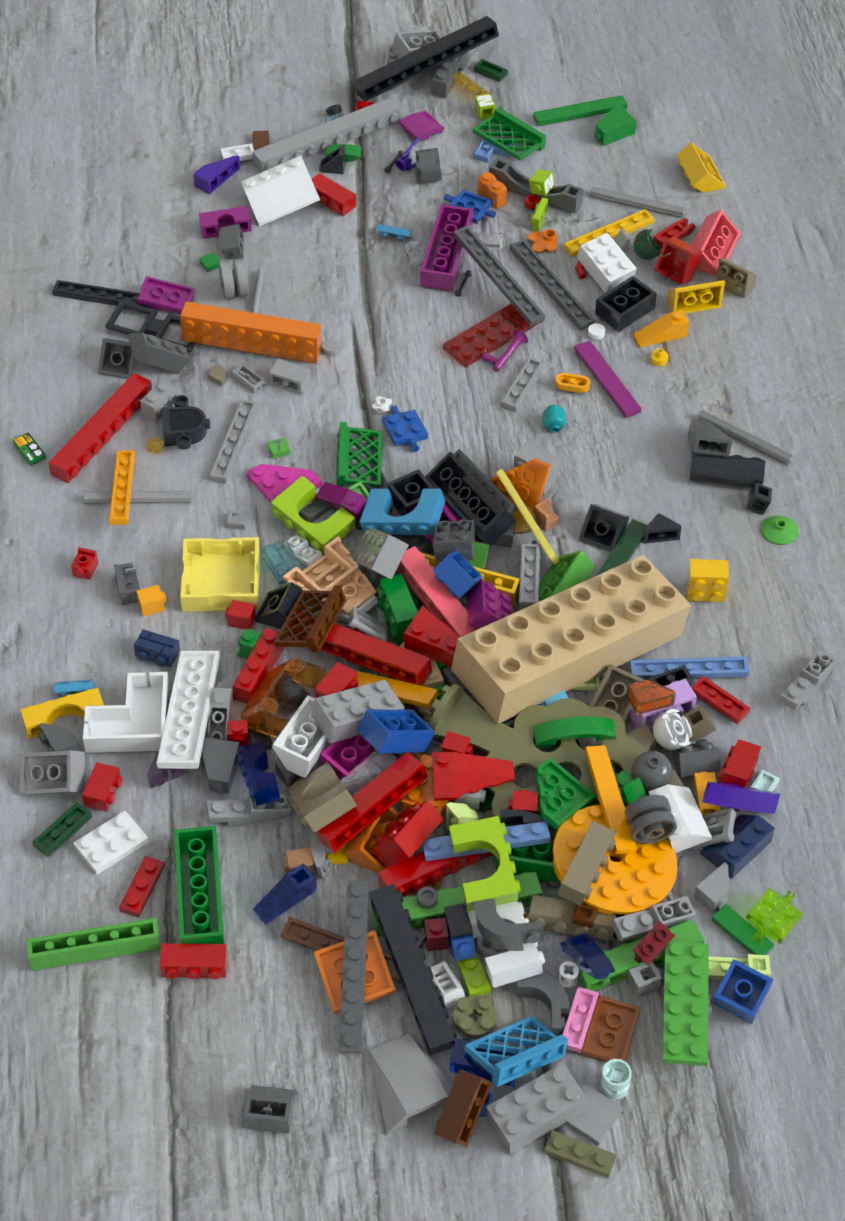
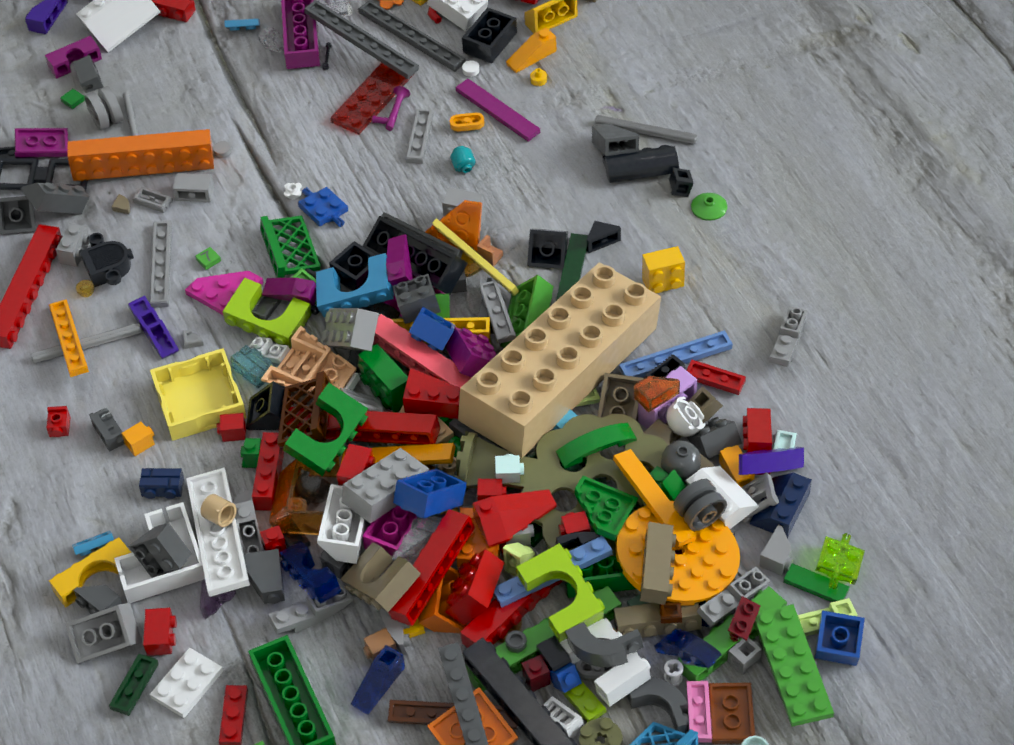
camera: 15 degrees left, 0 degrees up
(129, 711) = (160, 550): none -> dark grey slope
(195, 689) = (218, 510): none -> tan piece
(203, 499) = (153, 327): none -> dark purple slope
(308, 665) = (320, 455): none -> green arch
(451, 499) = (398, 260): none -> magenta slope
(480, 729) = (508, 468): none -> light aqua brick

